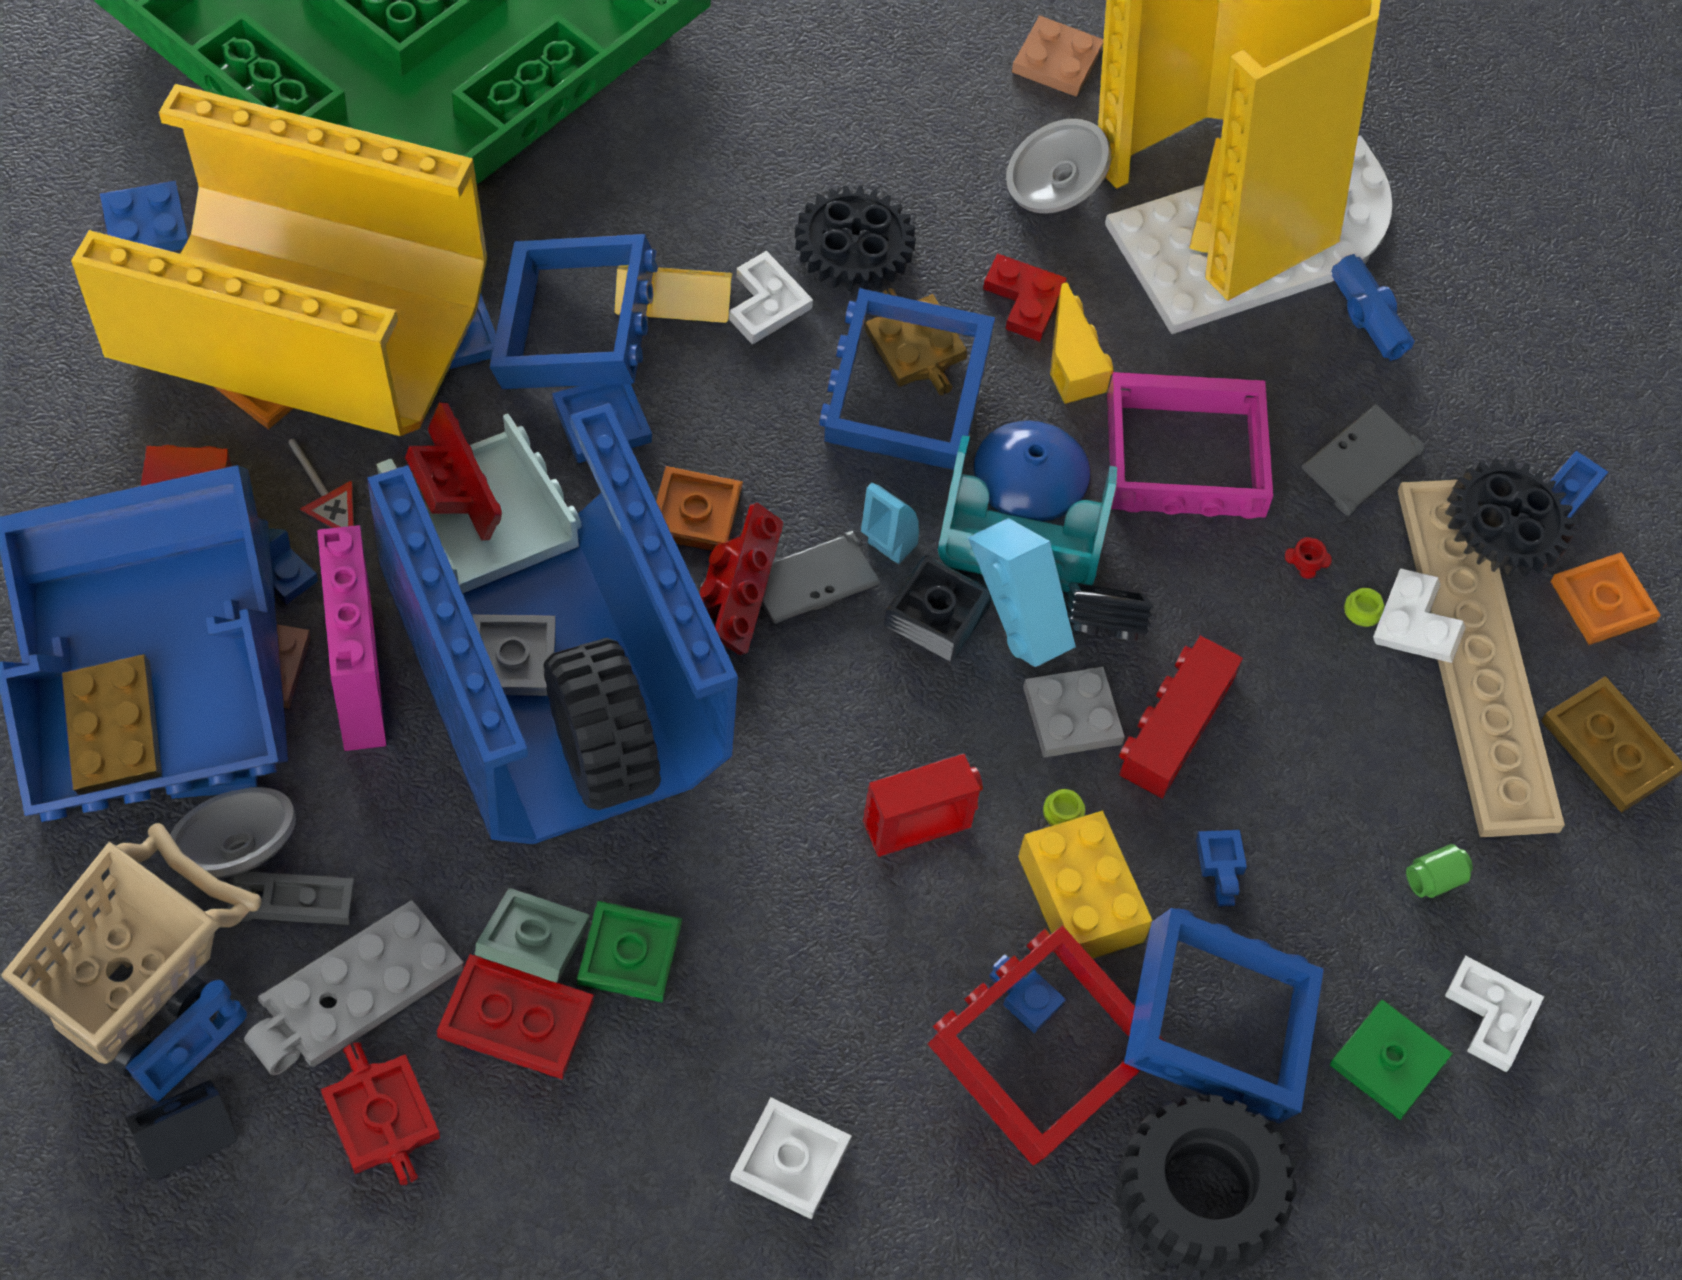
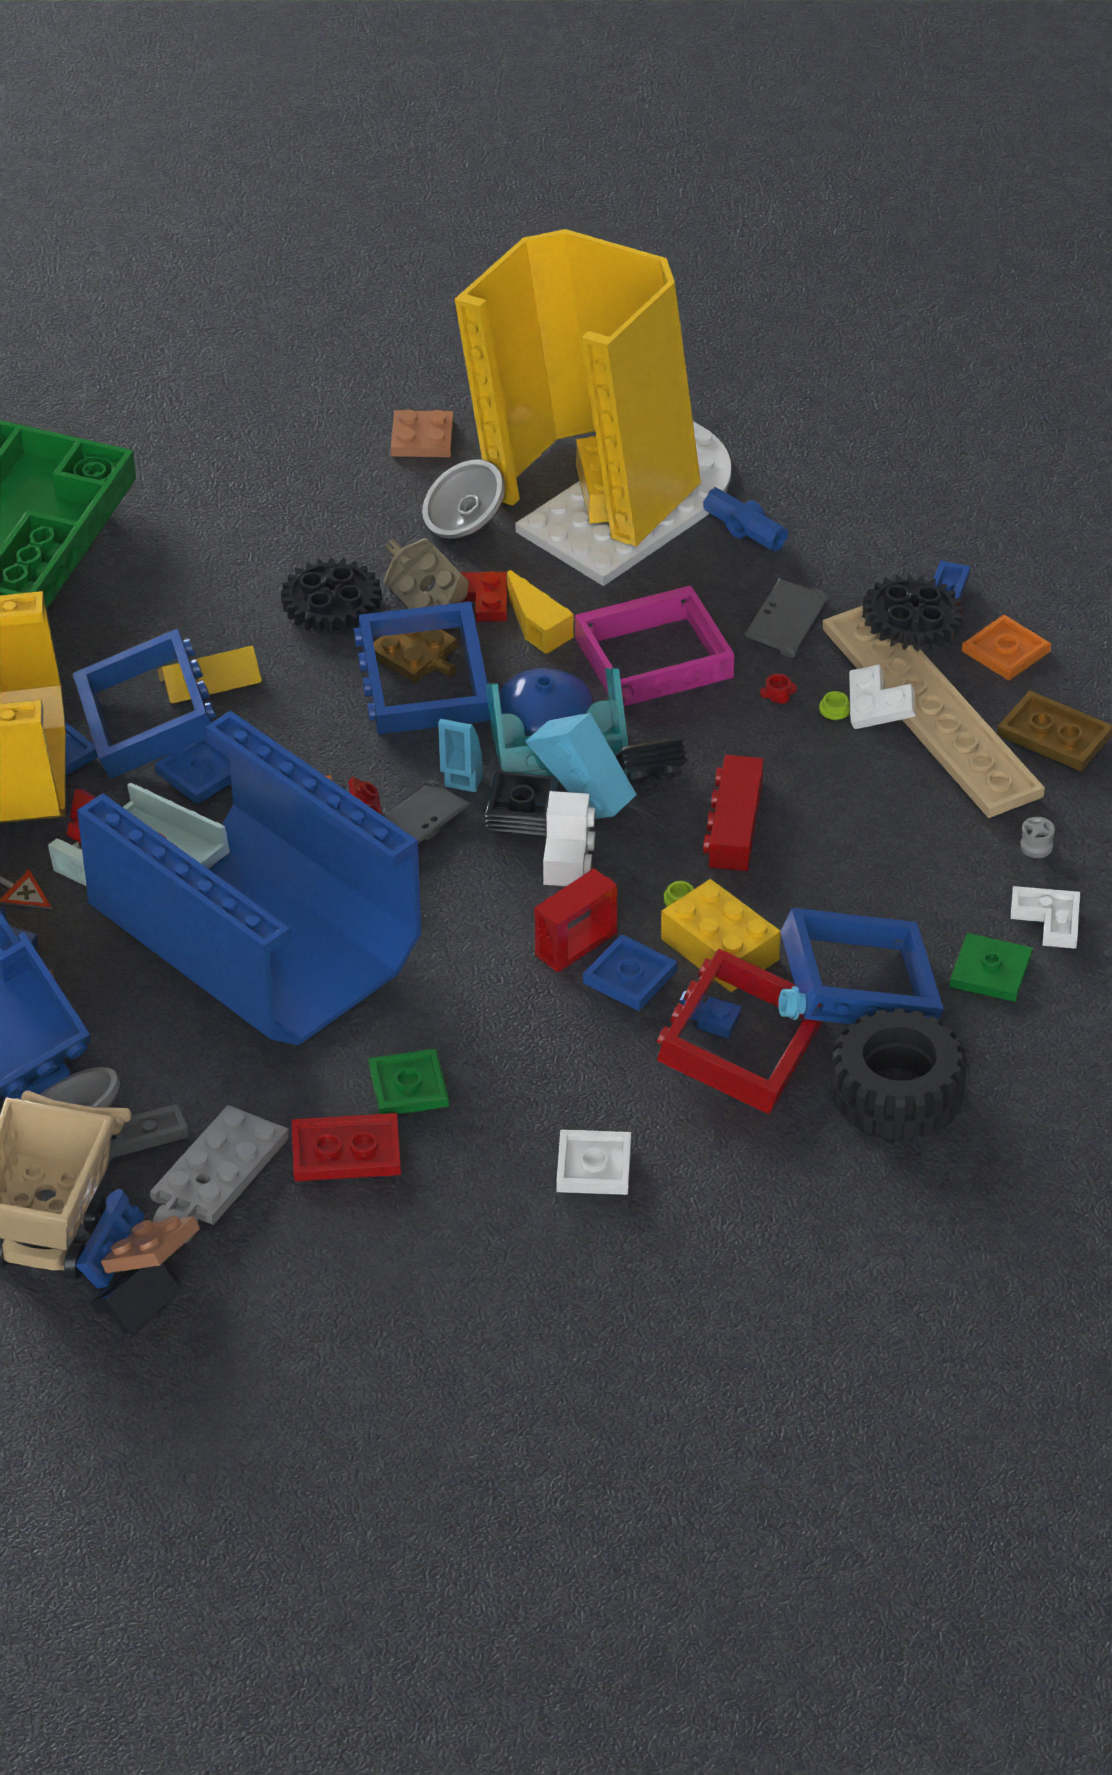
camera: 15 degrees left, 15 degrees down
(220, 1075) = (149, 1244): none -> nougat plate
(351, 638) = (114, 985): dark pink window -> none
(380, 1113) = (278, 1235): red plate -> none
(532, 935) = (331, 1093): sand green plate -> none
(602, 723) = (330, 931): black tyre -> none
(774, 302) = (289, 654): white plate -> none
(955, 243) = (416, 568): none -> dark tan plate
(957, 896) = (630, 972): none -> blue plate
(966, 682) = (568, 838): none -> white brick
(1073, 712) = (655, 838): light grey plate -> none
(1117, 1038) = (792, 1003): none -> medium azure plate
(1223, 857) = (810, 886): blue plate -> none
(1439, 871) = (969, 844): bright green brick -> none
(1527, 881) = (1037, 837): none -> light grey wheel

